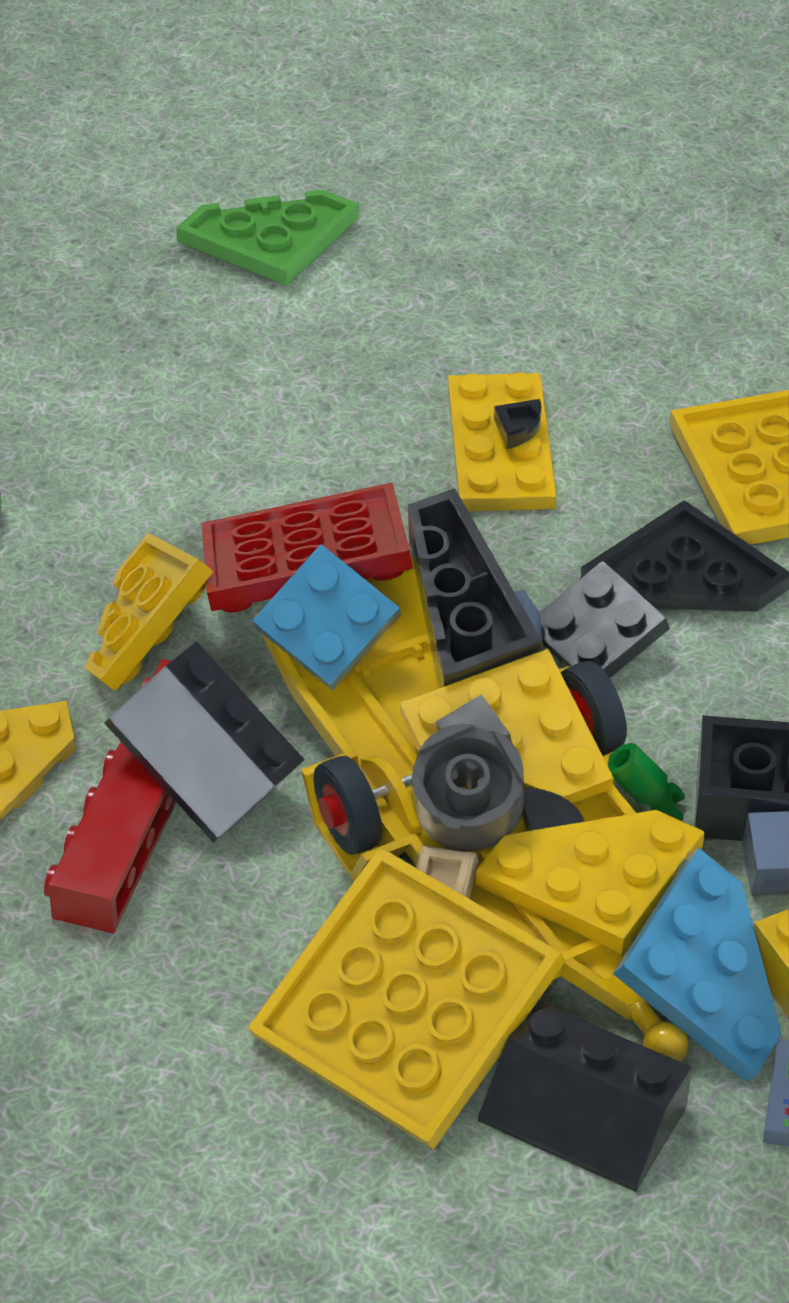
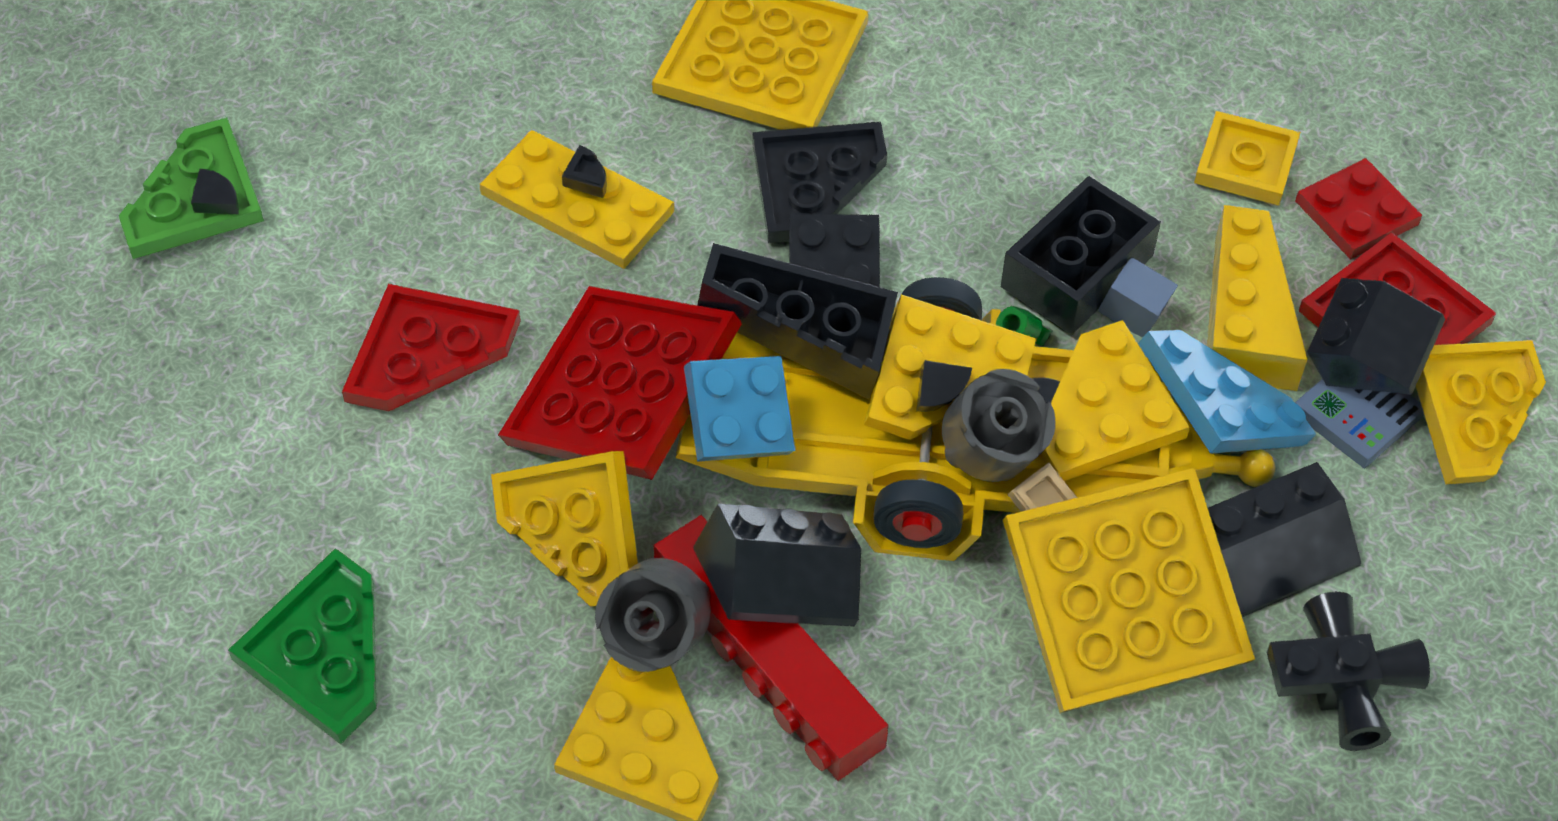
camera: 55 degrees left, 10 degrees up
(79, 684) = (627, 615): none -> dark grey brick
(249, 433) = (425, 343): none -> red plate
(268, 235) = (214, 194): none -> black tile
(474, 1215) = (1346, 669): none -> black brick

